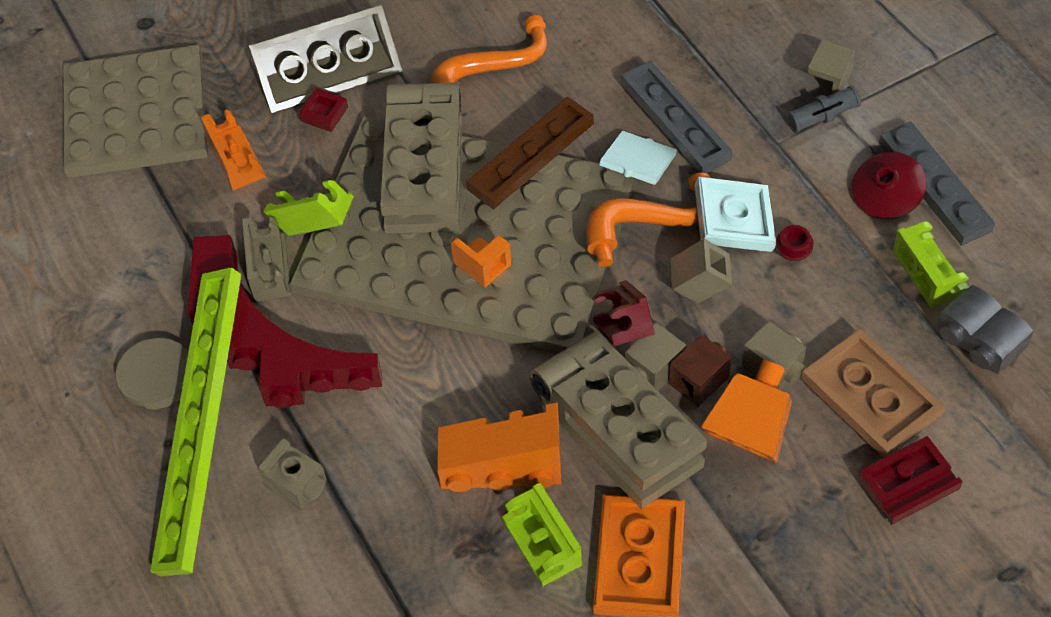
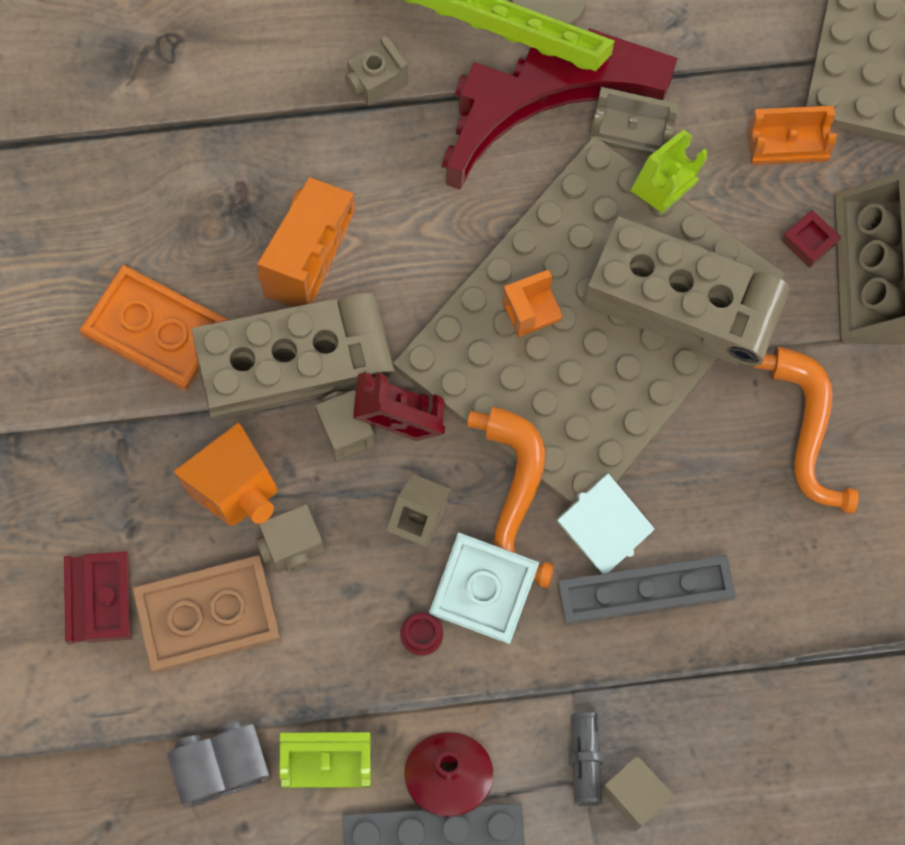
camera: 105 degrees right, 15 degrees up
(530, 152) = (647, 405): reddish brown plate -> none
(542, 535) = (212, 254): lime hinge -> none
(700, 369) = (311, 462): copper brick -> none

